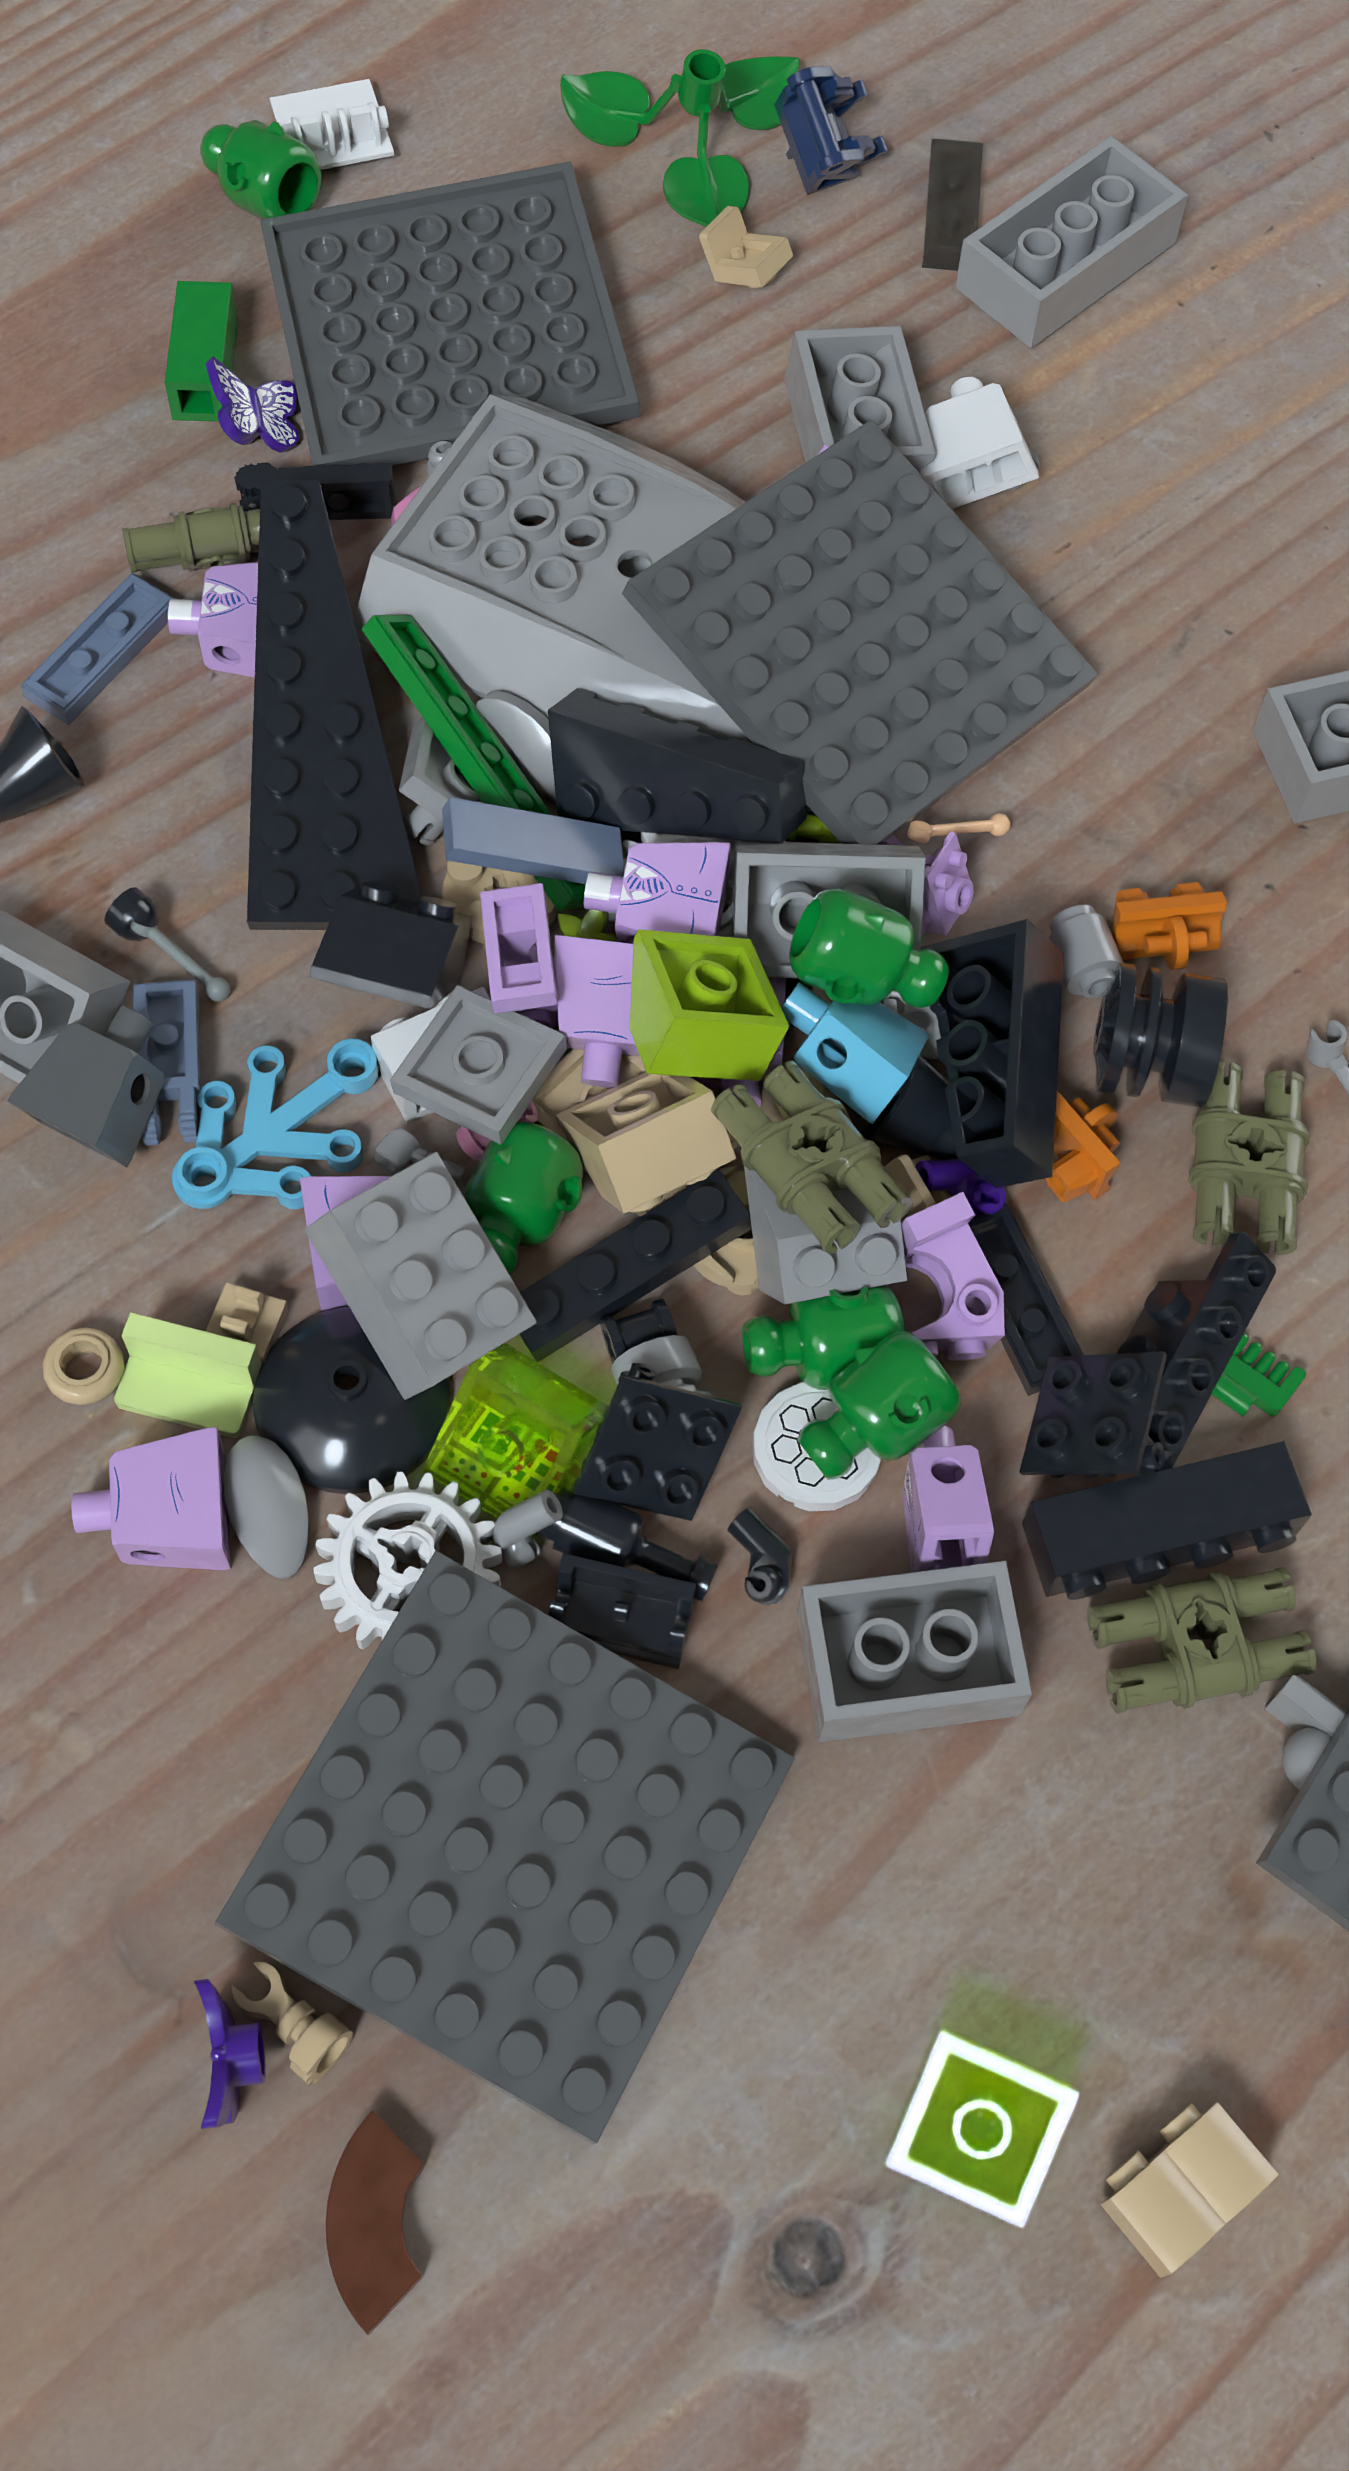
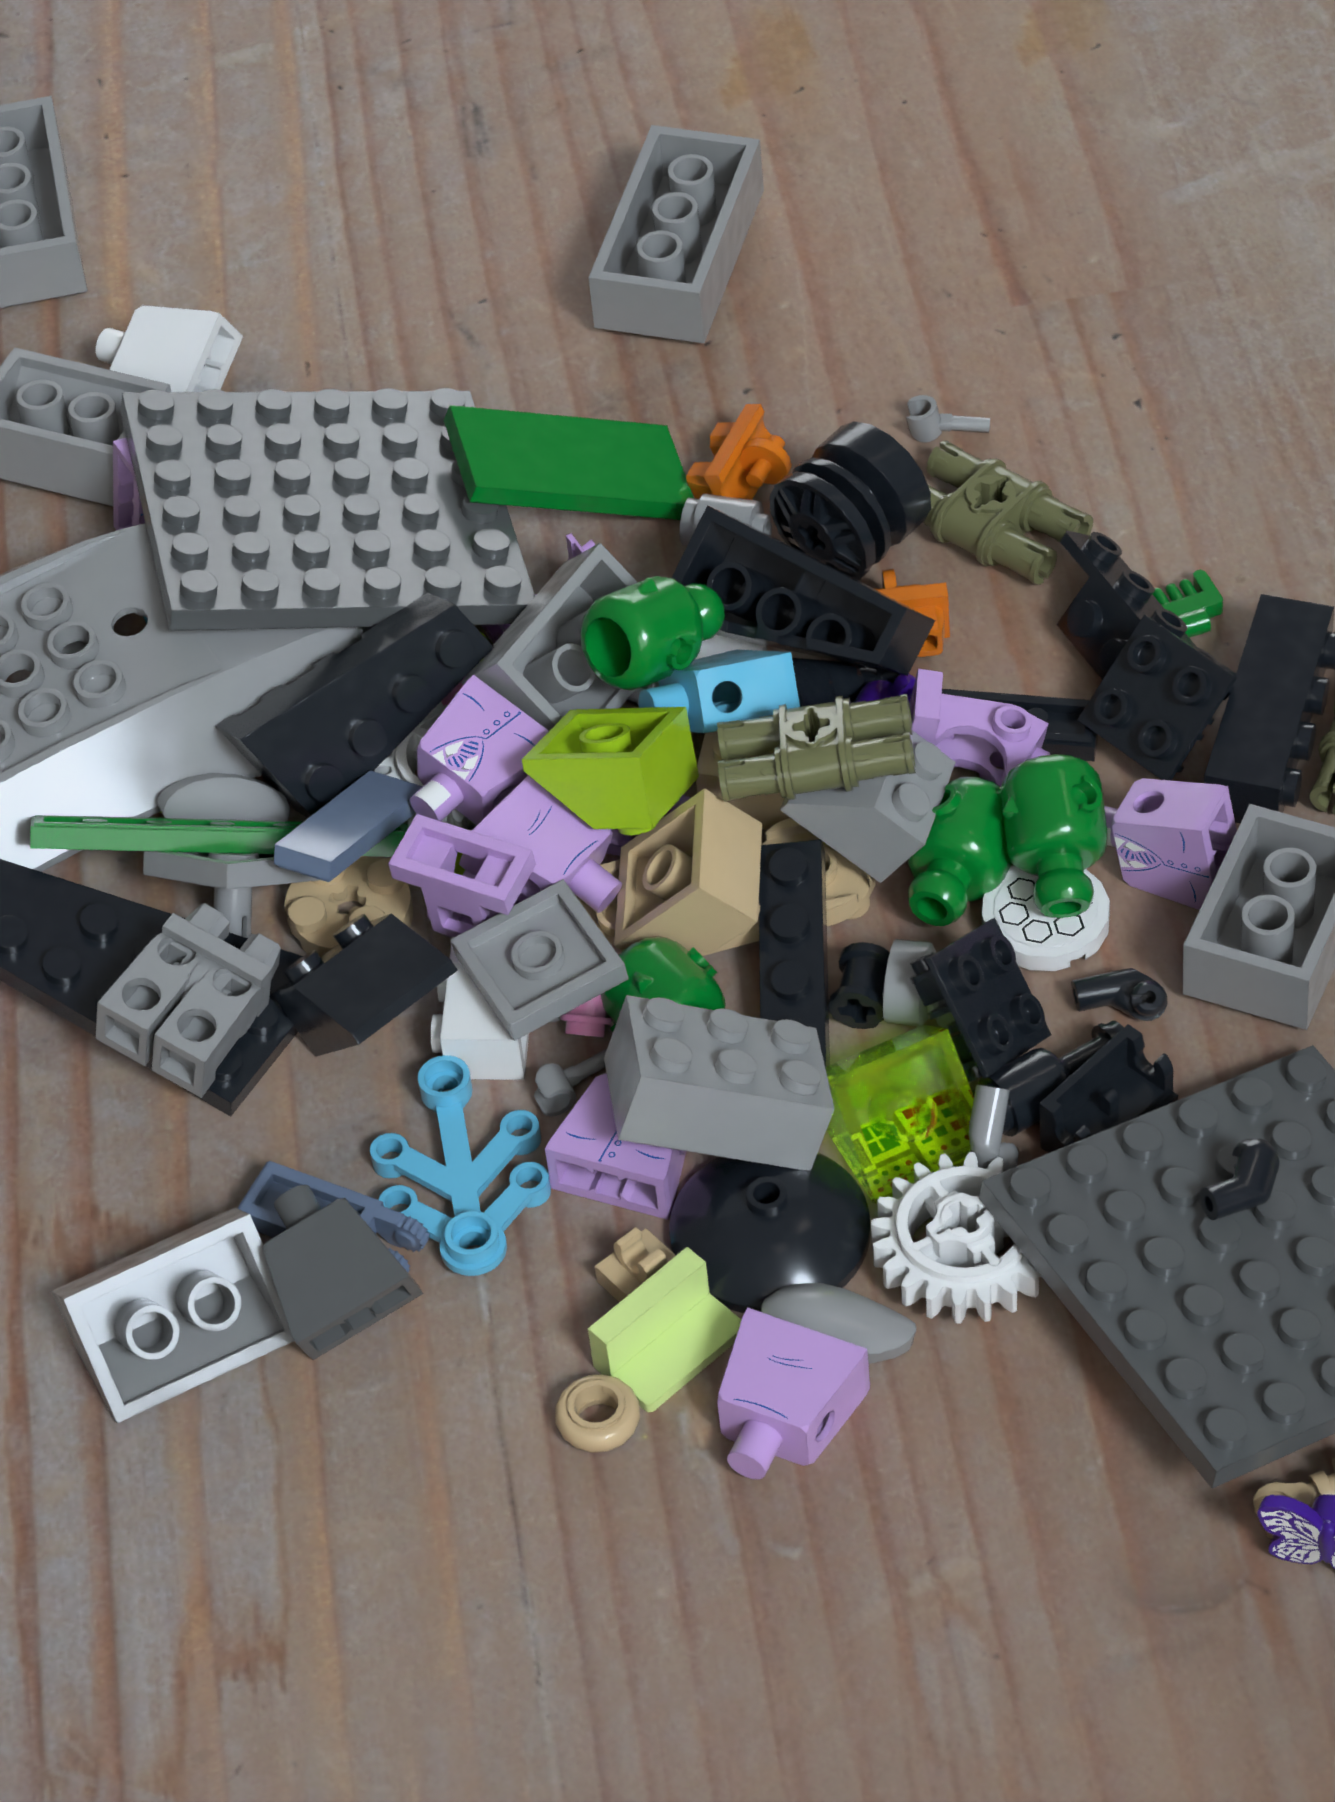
camera: 50 degrees left, 15 degrees down
(136, 919) = (163, 1187): hinge -> none
(293, 828) = (188, 998): none -> light grey hips
(564, 1786) = (1250, 1184): none -> black arm
(922, 832) = (552, 534): light nougat hinge -> none
(1057, 790) = (567, 462): none -> green tile

